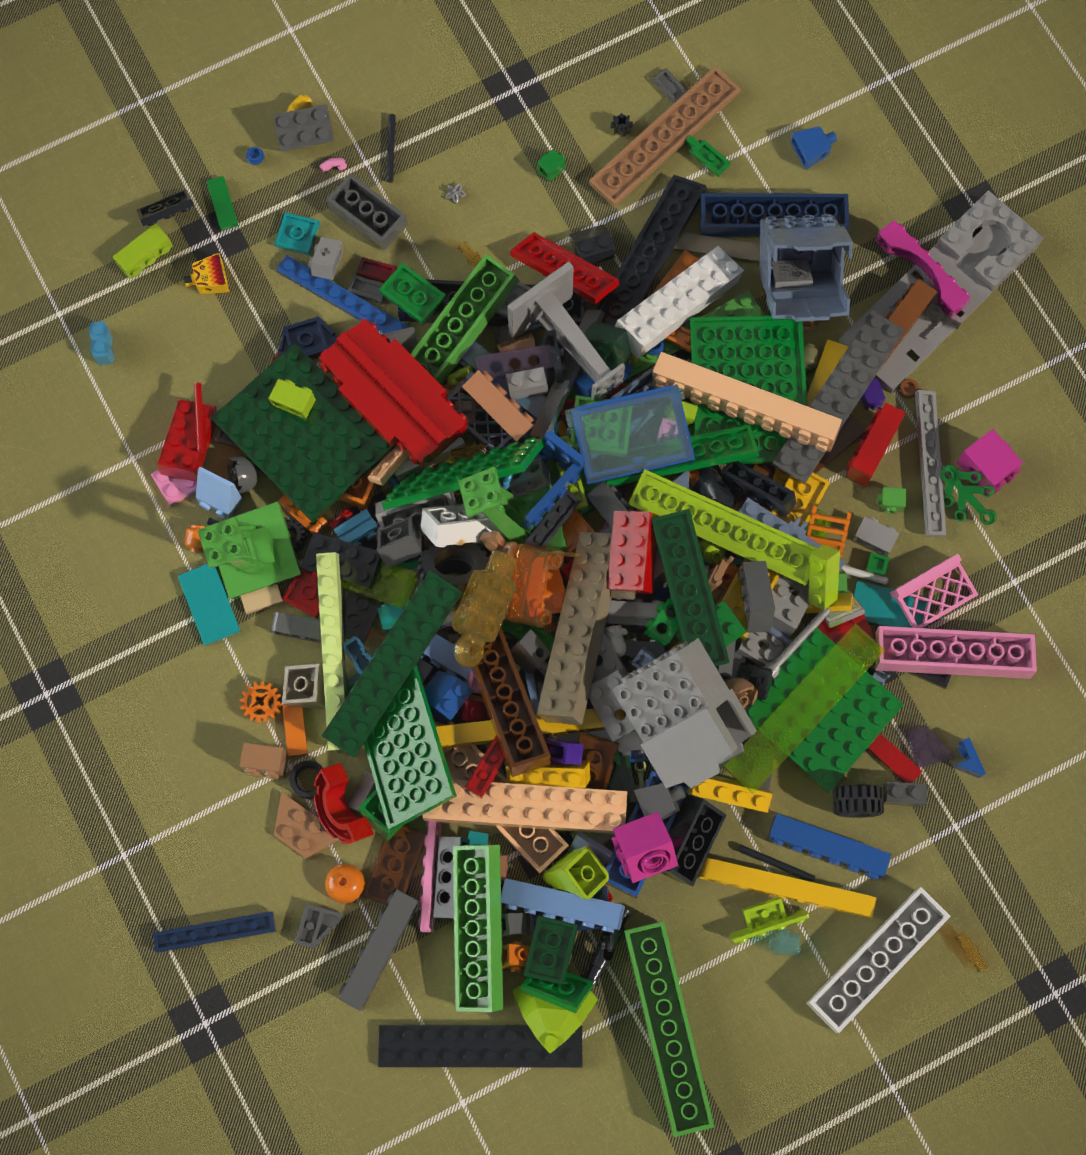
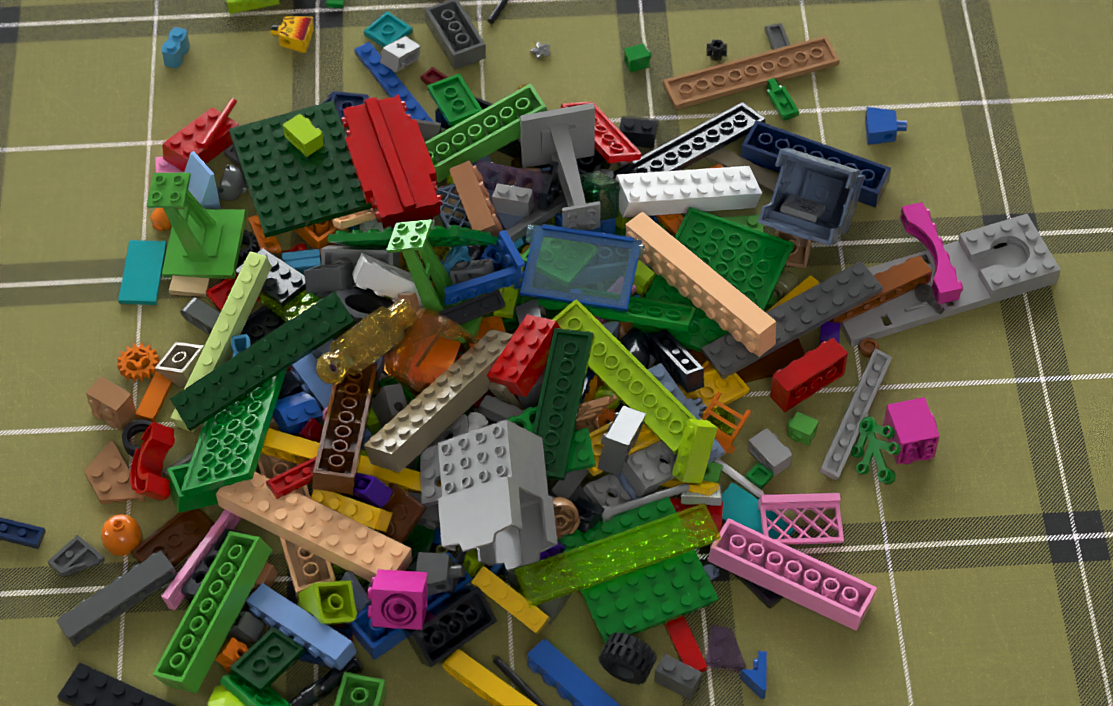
camera: 25 degrees right, 20 degrees down
(366, 289) = (419, 90): dark grey tile -> none

